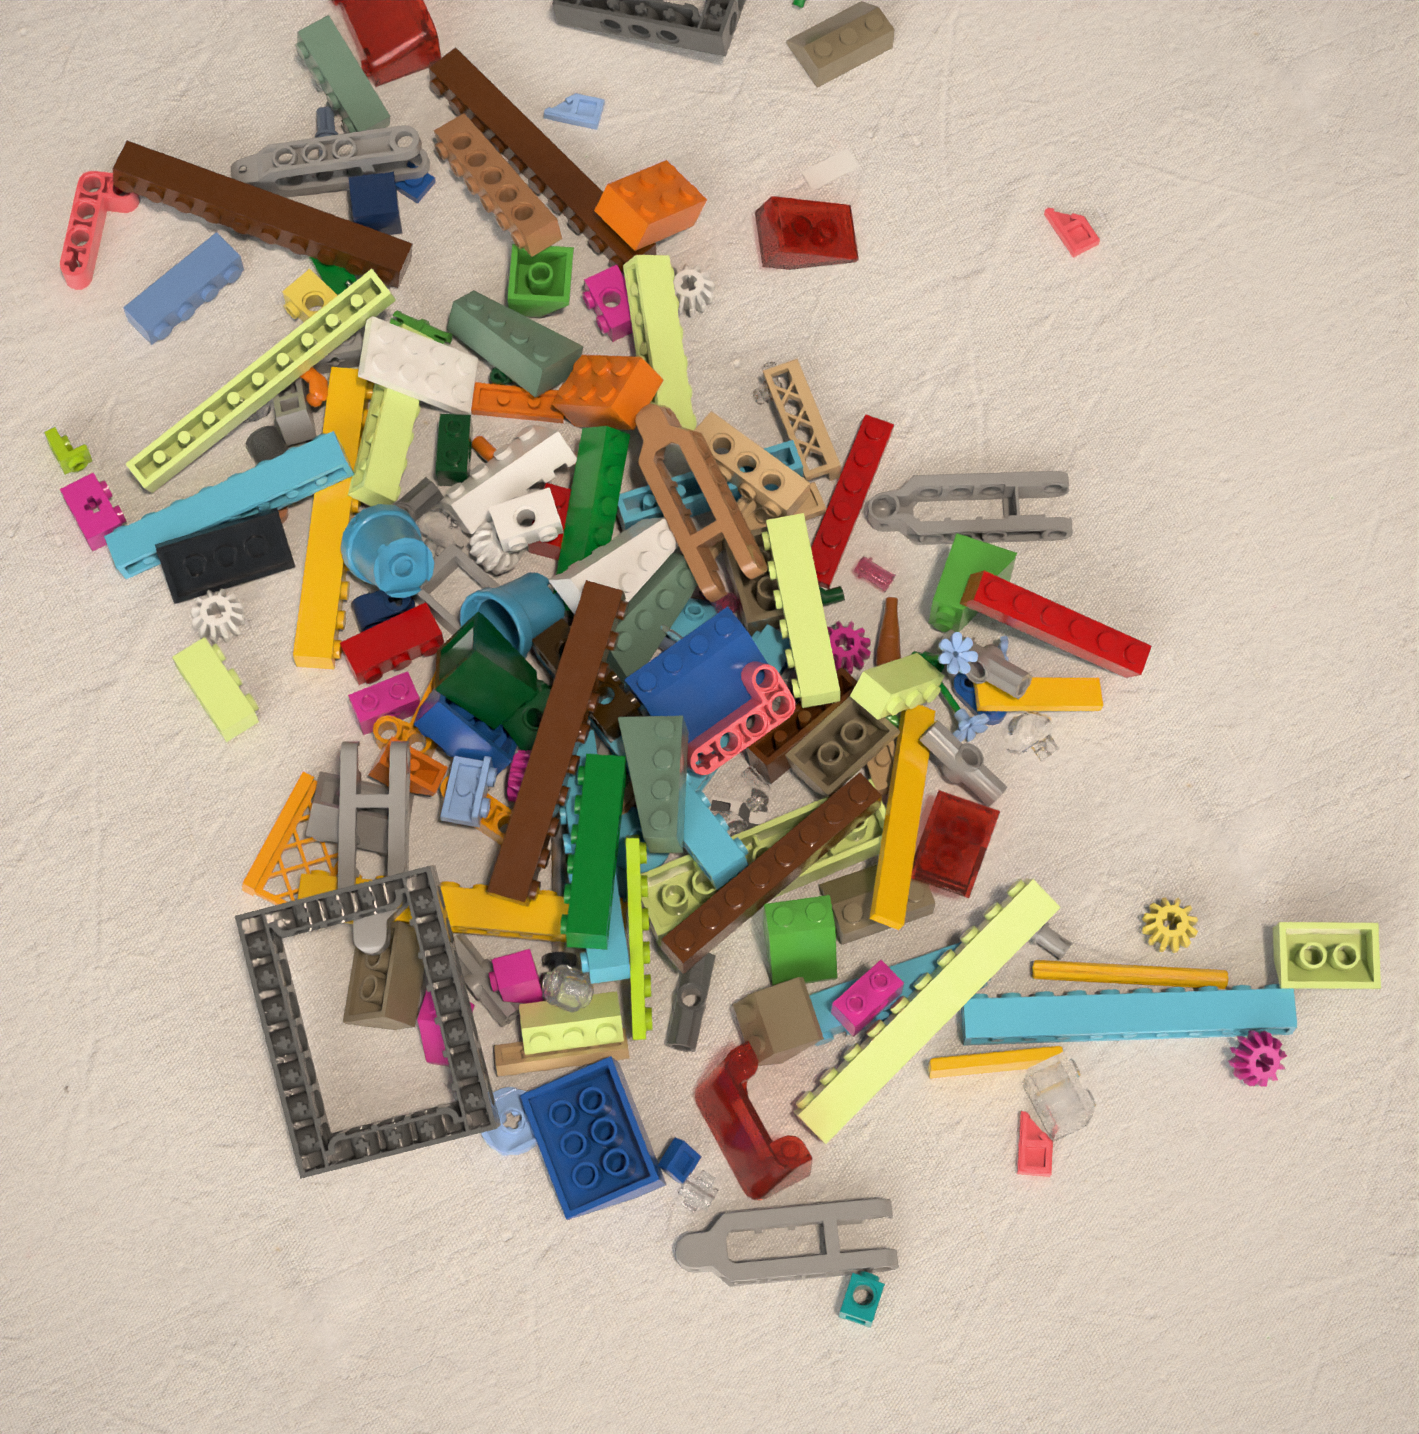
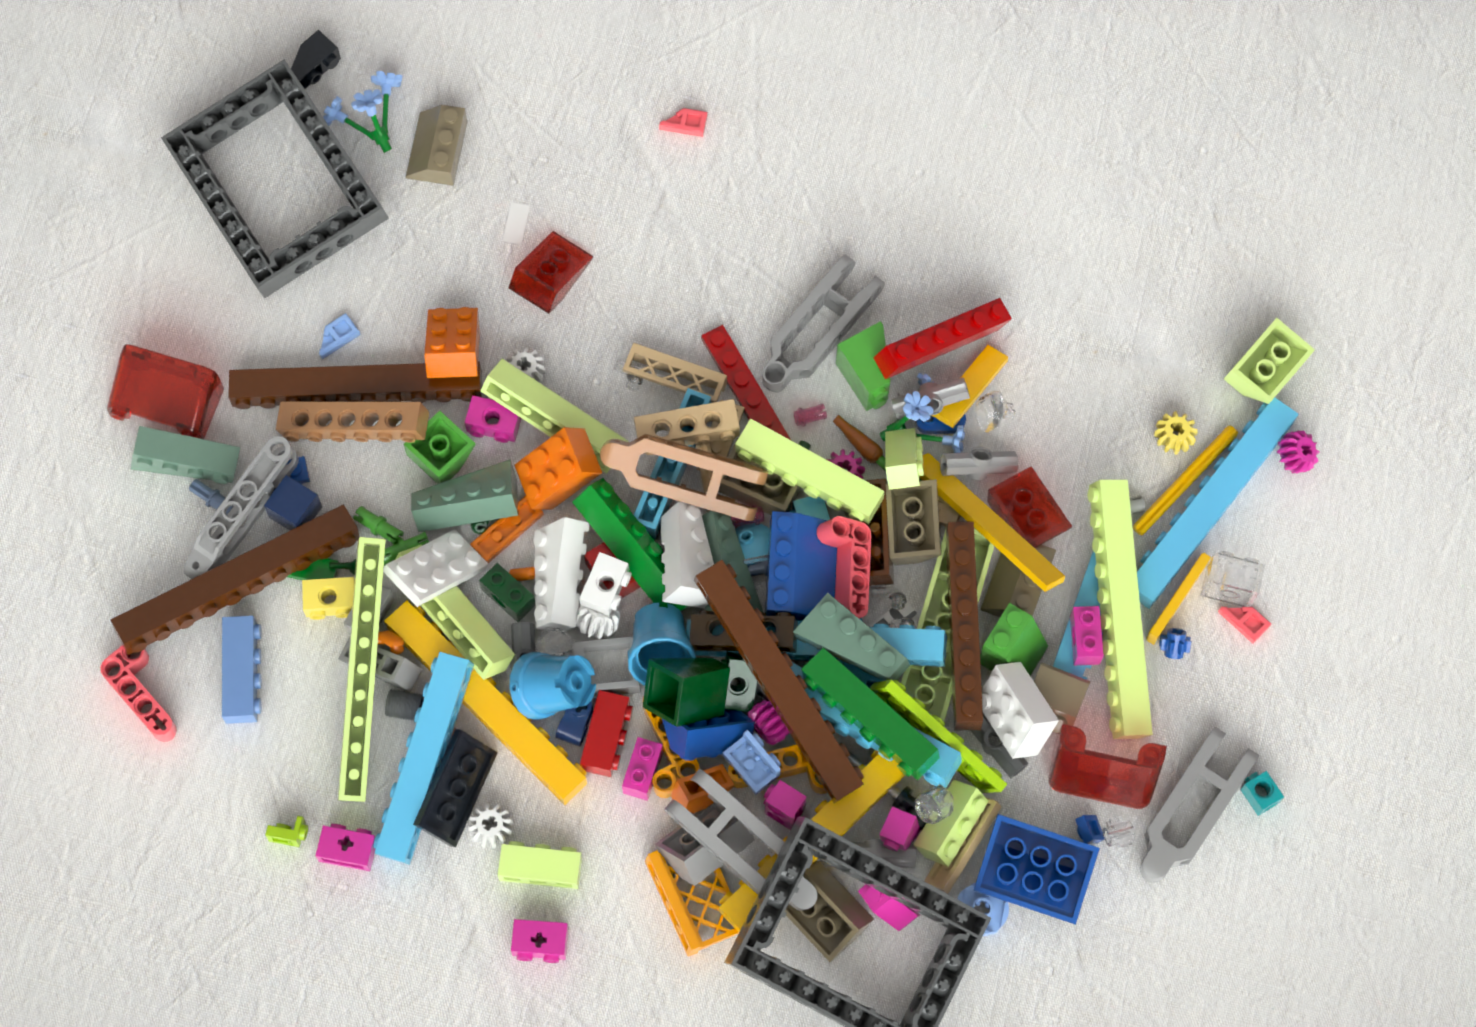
camera: 50 degrees left, 0 degrees up
(140, 728) = (527, 932): none -> dark pink brick
(423, 290) = (378, 525): none -> bright green pin
(456, 854) = (784, 804): none -> dark pink brick
(730, 990) = (1017, 710): none -> white brick
(944, 1094) = (1175, 643): none -> blue gear

